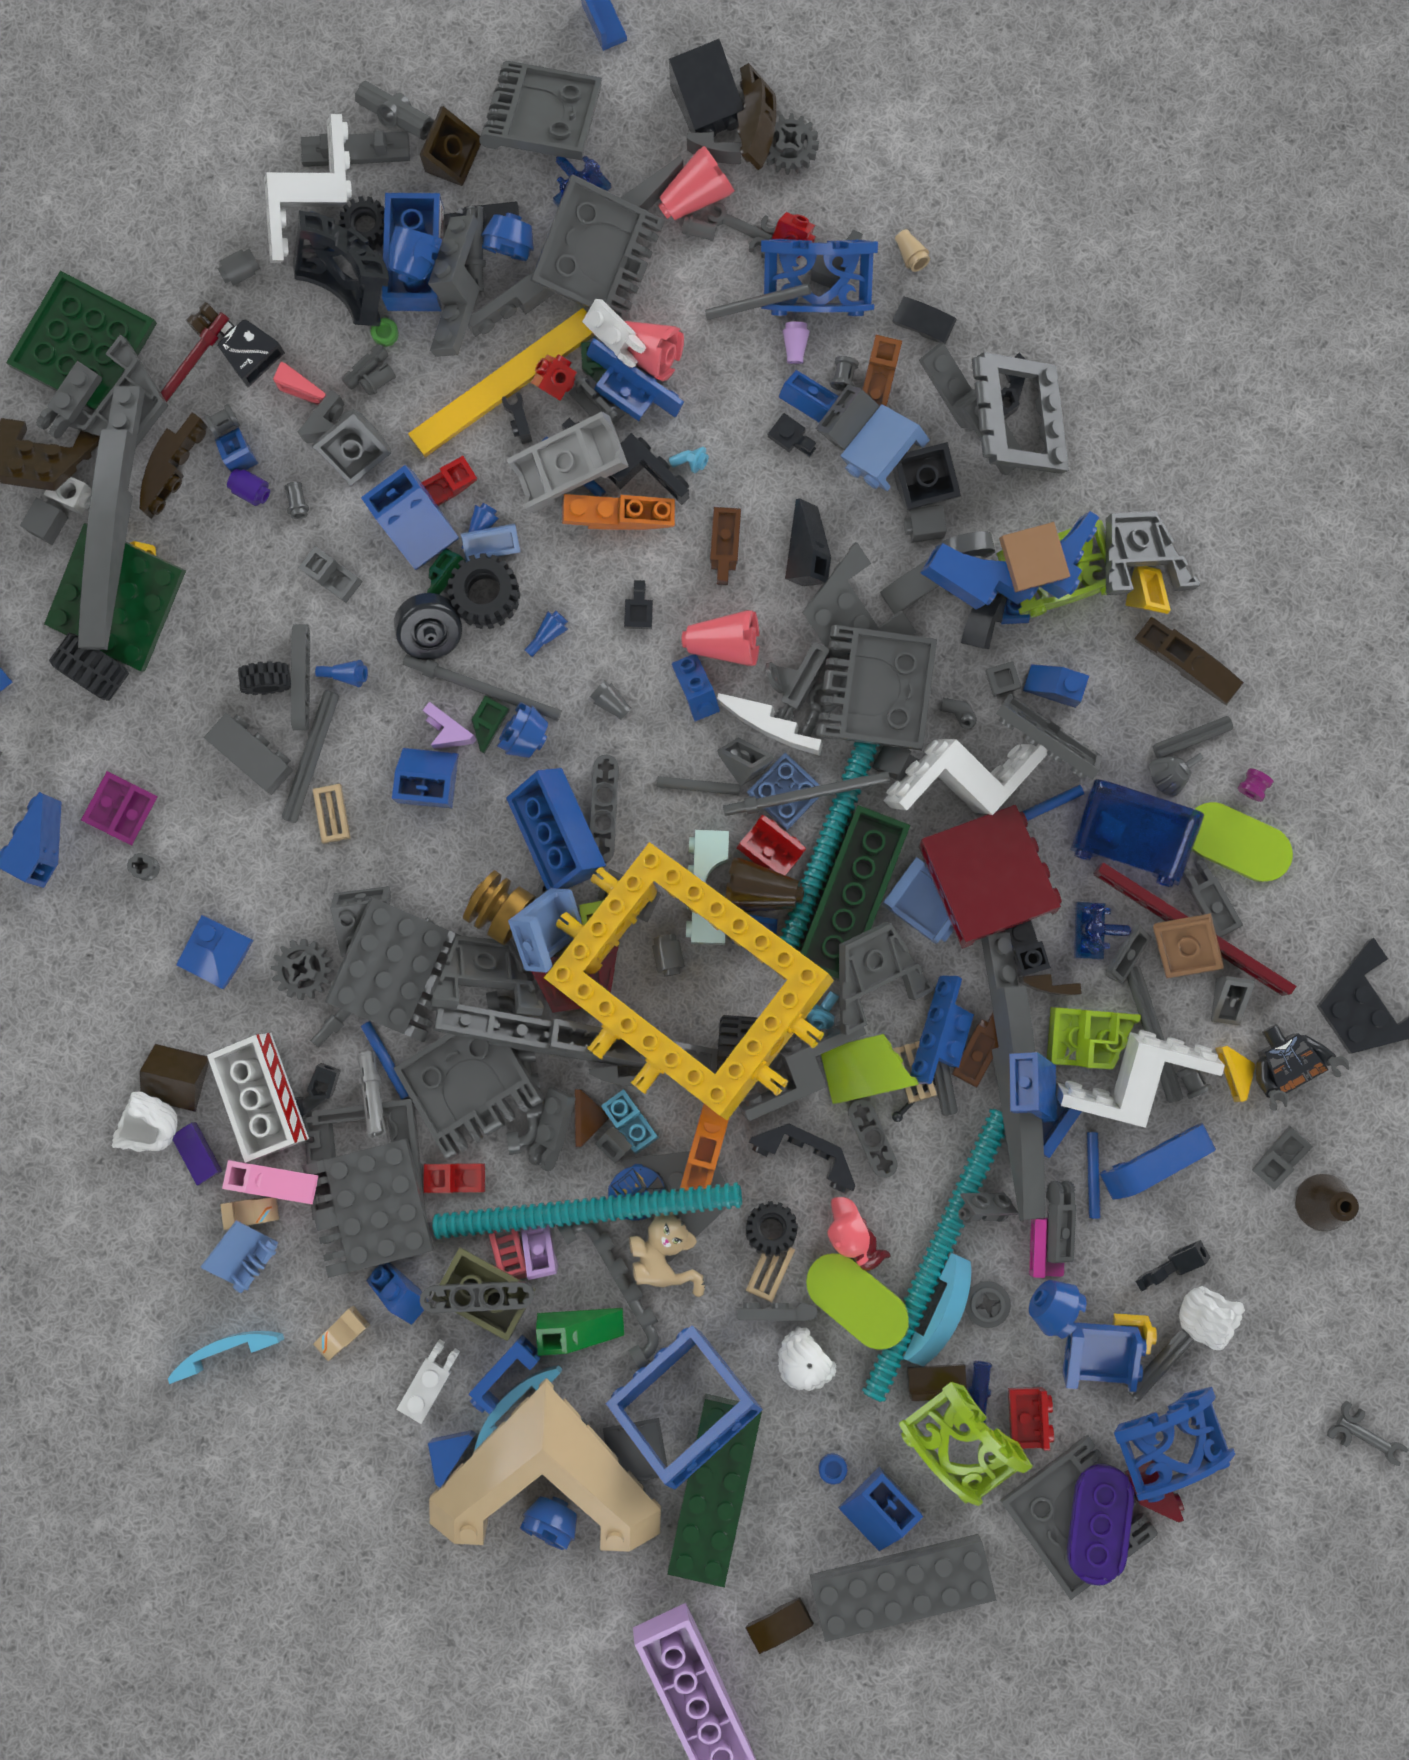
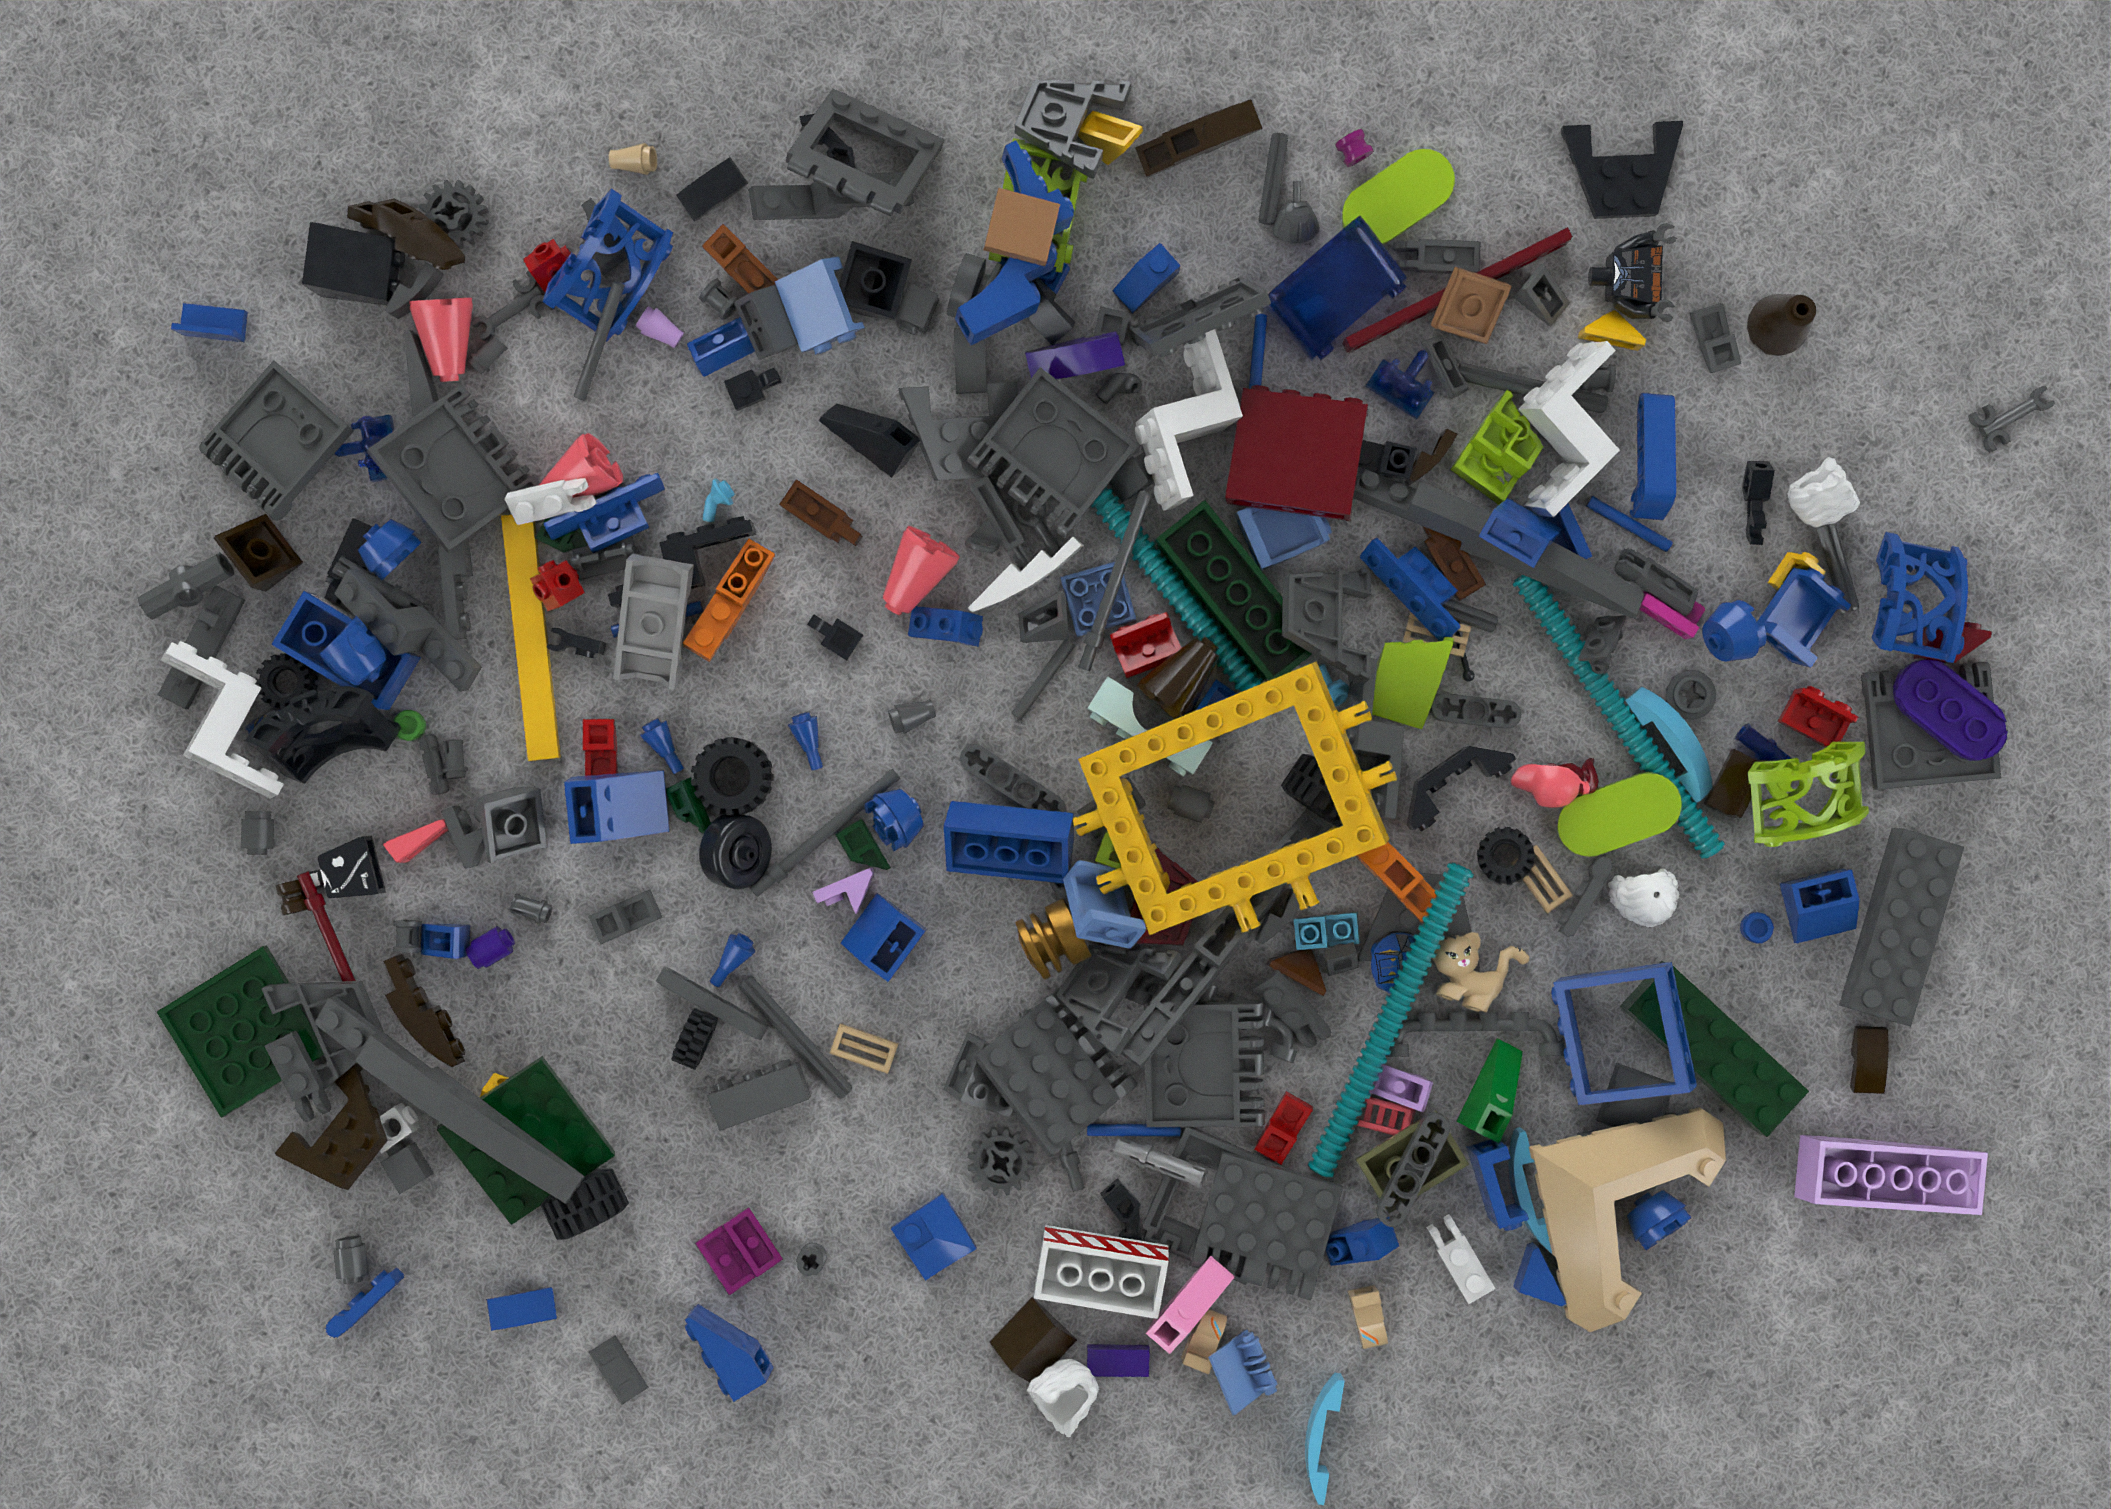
camera: 65 degrees left, 5 degrees up
(492, 541) = (686, 742): medium blue tile -> none
(963, 666) = (1077, 356): none -> dark purple slope

